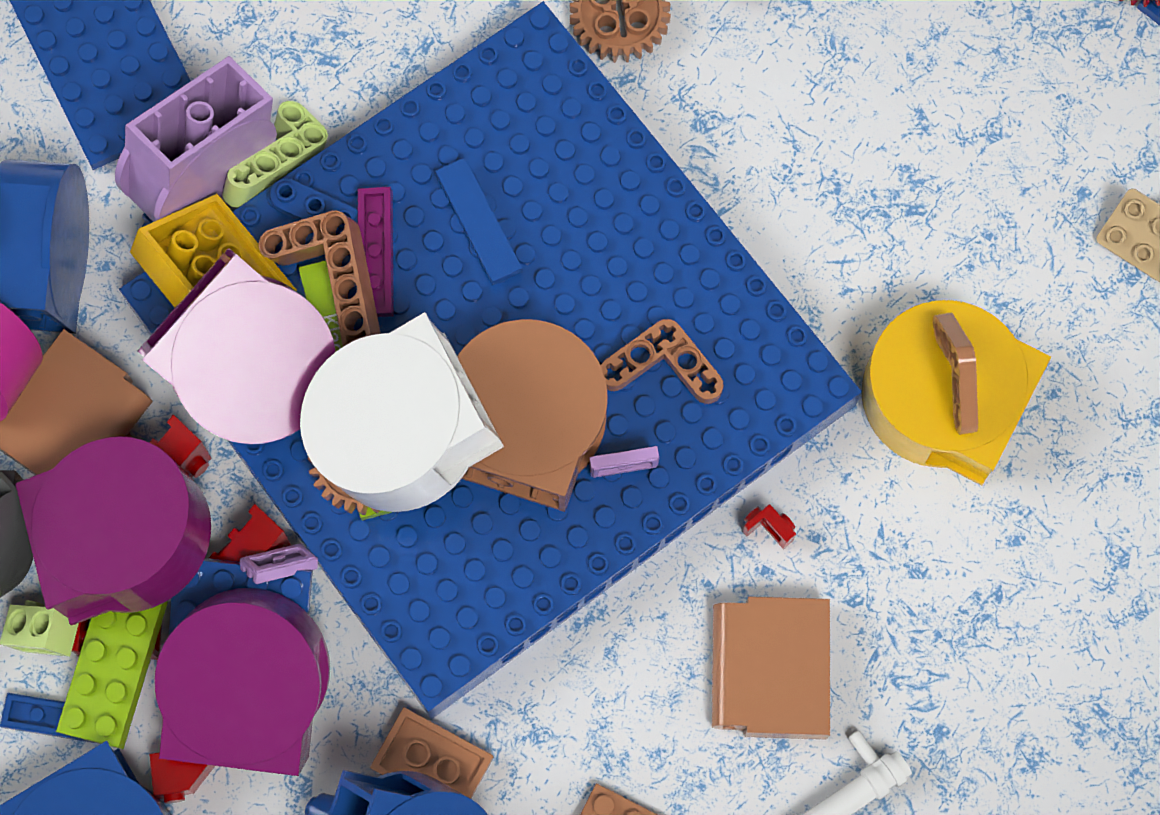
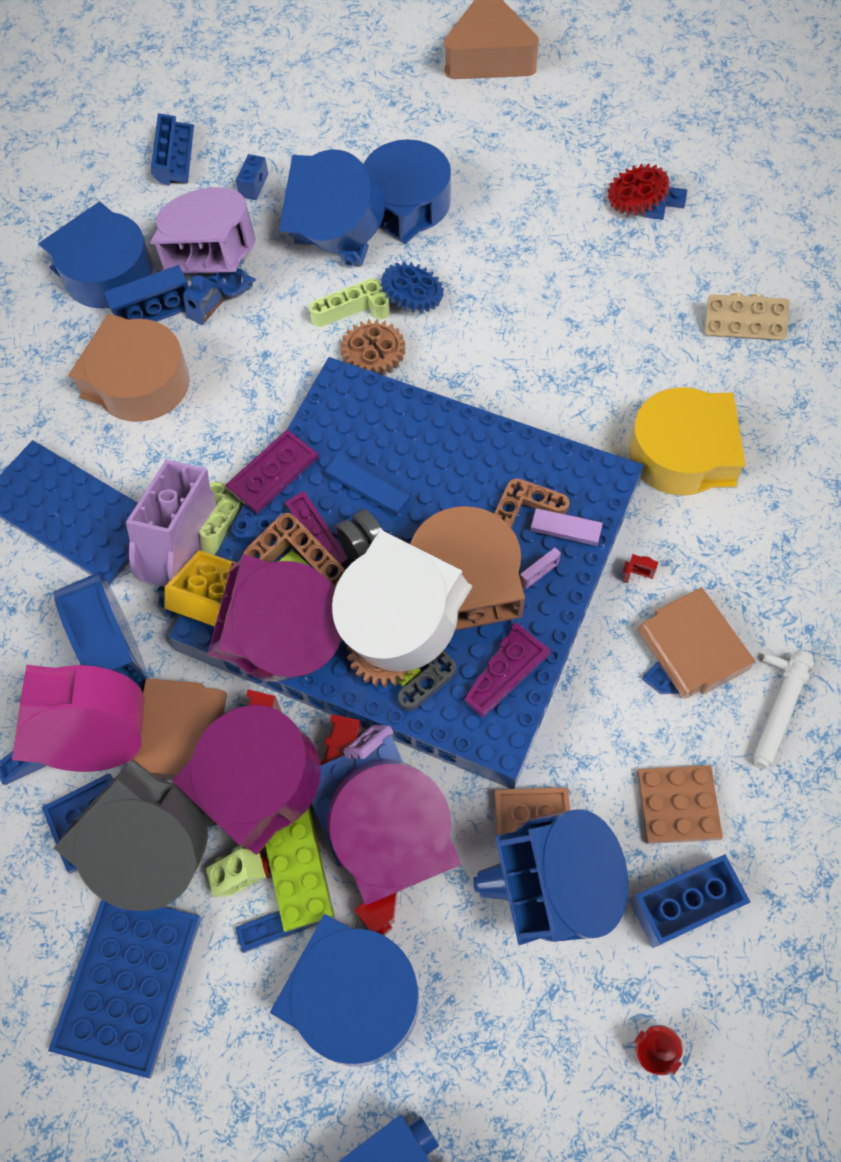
camera: 25 degrees left, 10 degrees down
(369, 133) = (271, 471): none -> magenta tile
(407, 521) = (432, 672): none -> dark grey beam
(422, 296) = (358, 534): none -> dark grey wheel
(508, 567) = (511, 664): none -> magenta wing
(698, 423) = (566, 527): none -> lavender tile
(699, 686) = (659, 680): none -> blue tile
(962, 359) = (698, 410): nougat beam -> none

